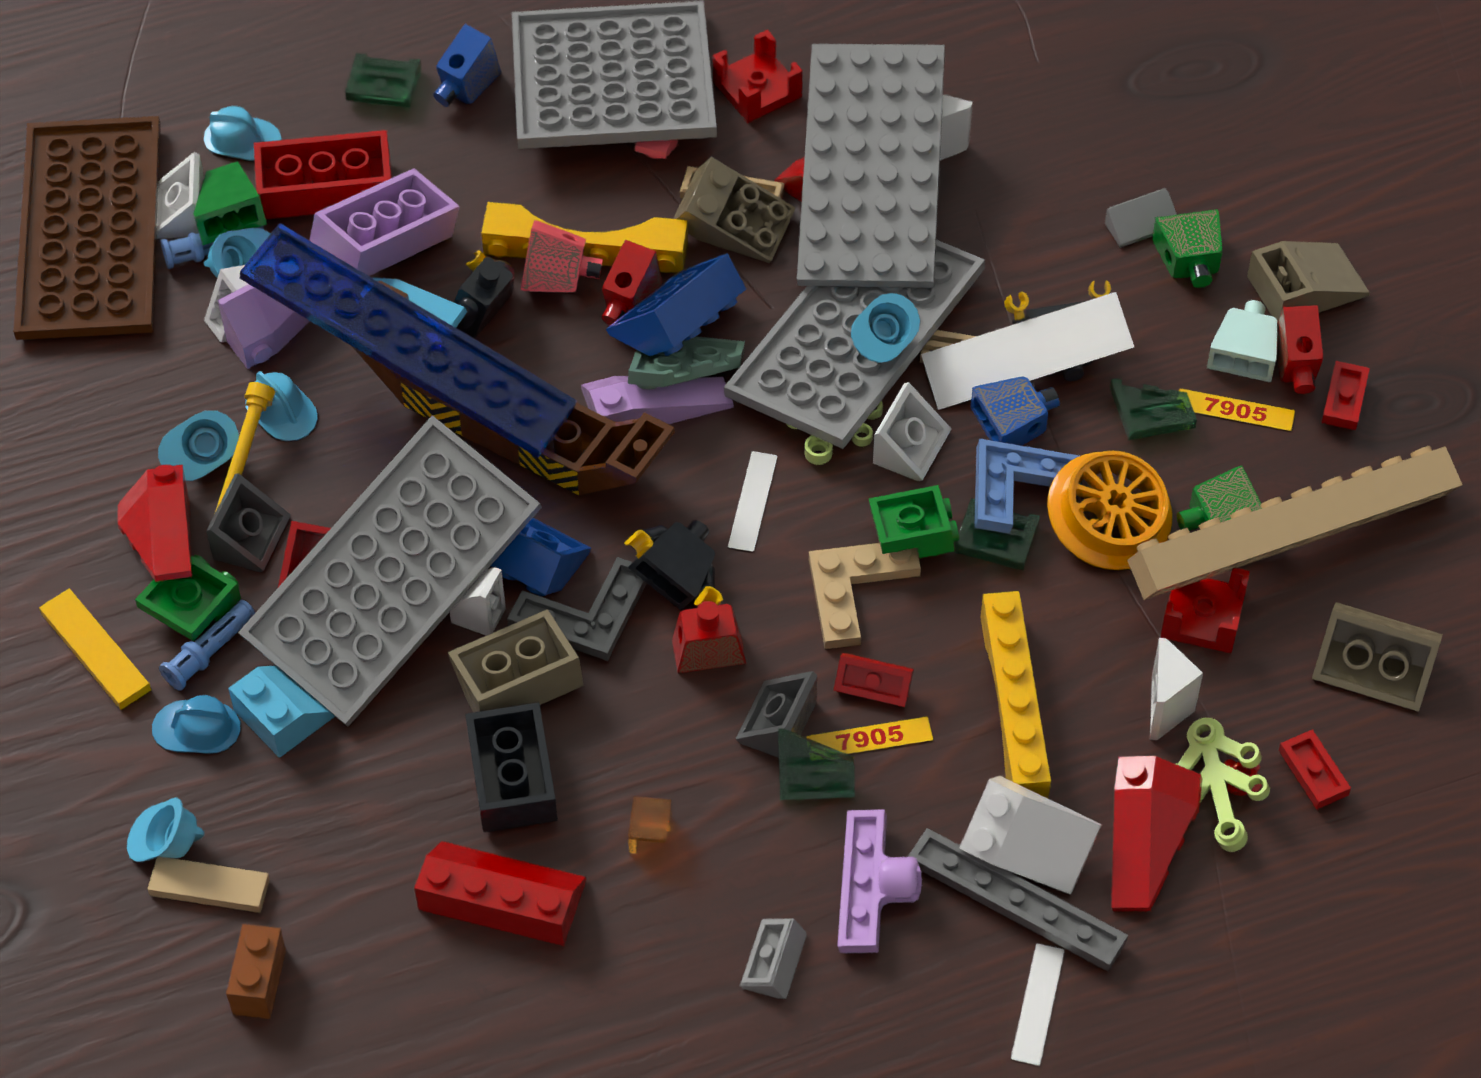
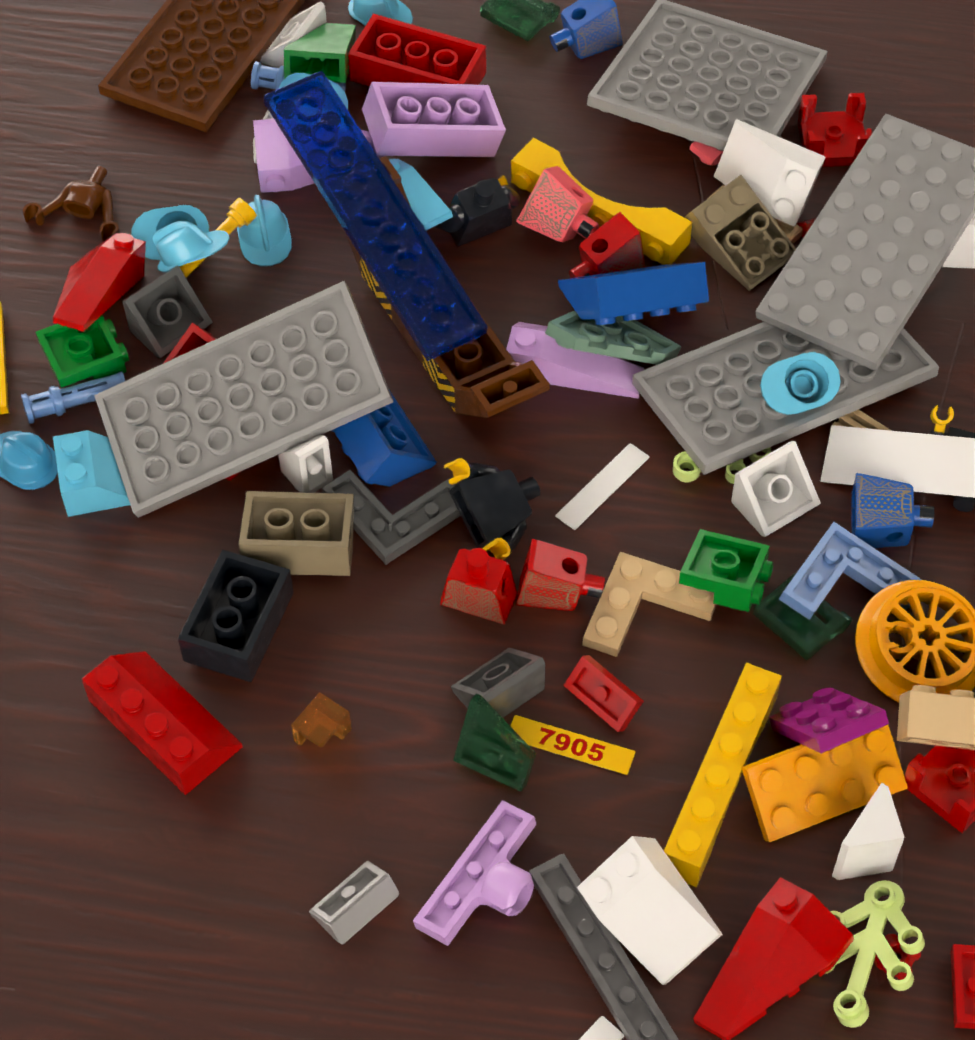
camera: 30 degrees right, 0 degrees up
(79, 455) = (82, 201): none -> reddish brown piece
(230, 450) = (186, 243): none -> medium azure piece
(734, 135) = (773, 167): none -> white slope
(771, 600) = (555, 578): none -> red torso
(1079, 609) = (827, 719): none -> magenta plate
(1101, 660) = (810, 787): none -> light orange plate

